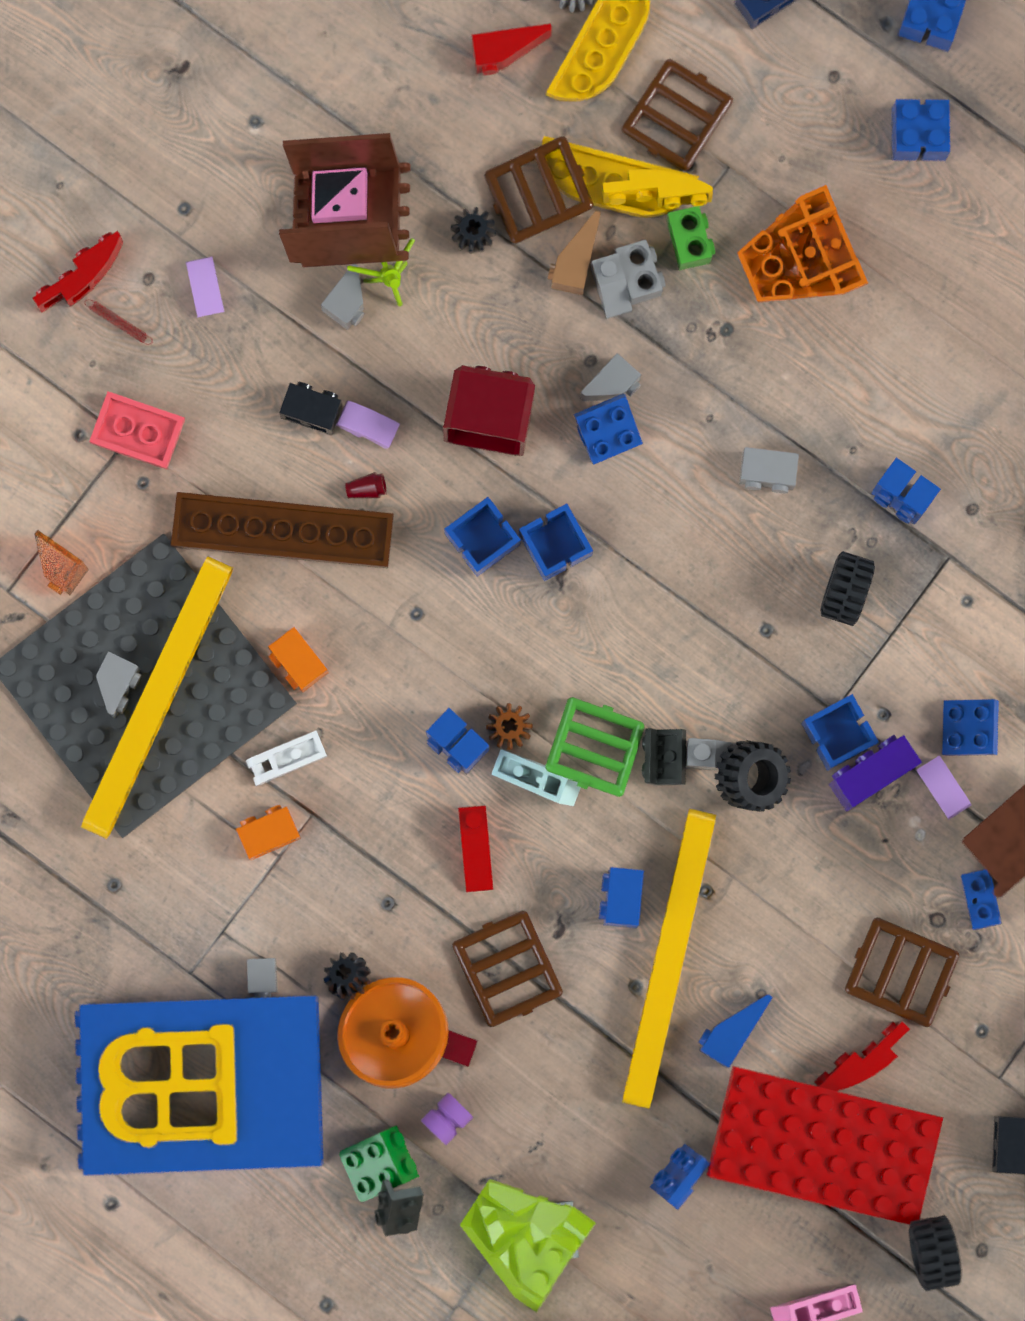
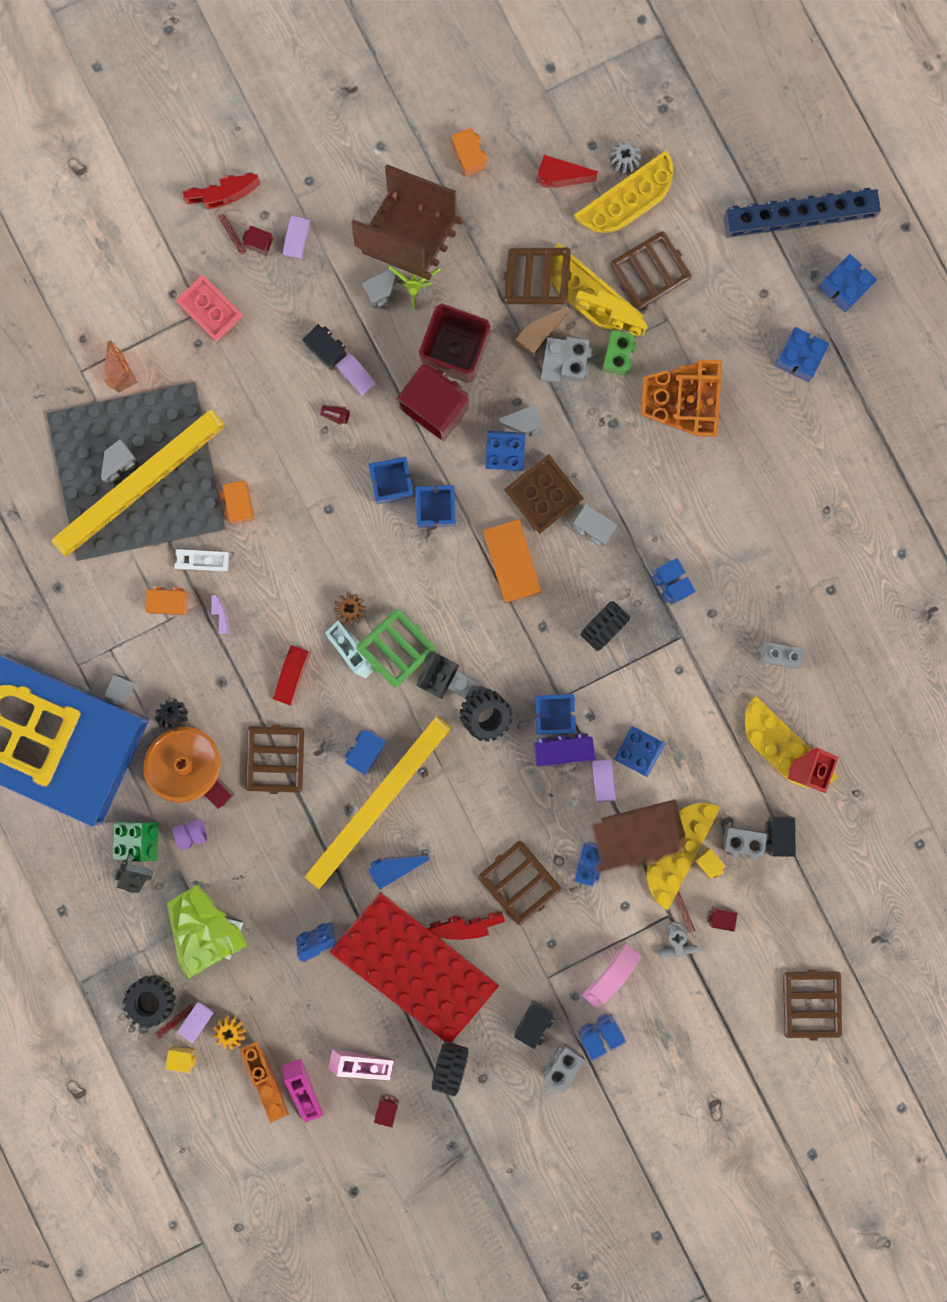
camera: 35 degrees right, 5 degrees up
(157, 314) = (257, 240): none -> dark red brick
(282, 530) = (269, 415): reddish brown plate -> none
(339, 195) = (408, 218): bright pink tile -> none
(341, 811) = (218, 609): none -> lavender slope
(373, 75) = (469, 152): none -> orange brick
(446, 733) = (310, 598): blue piece -> none
(484, 226) = (476, 279): black gear -> none
(485, 302) = (452, 327): none -> dark red plate
(684, 461) = (543, 494): none -> reddish brown plate
(685, 565) = (512, 561): none -> orange tile

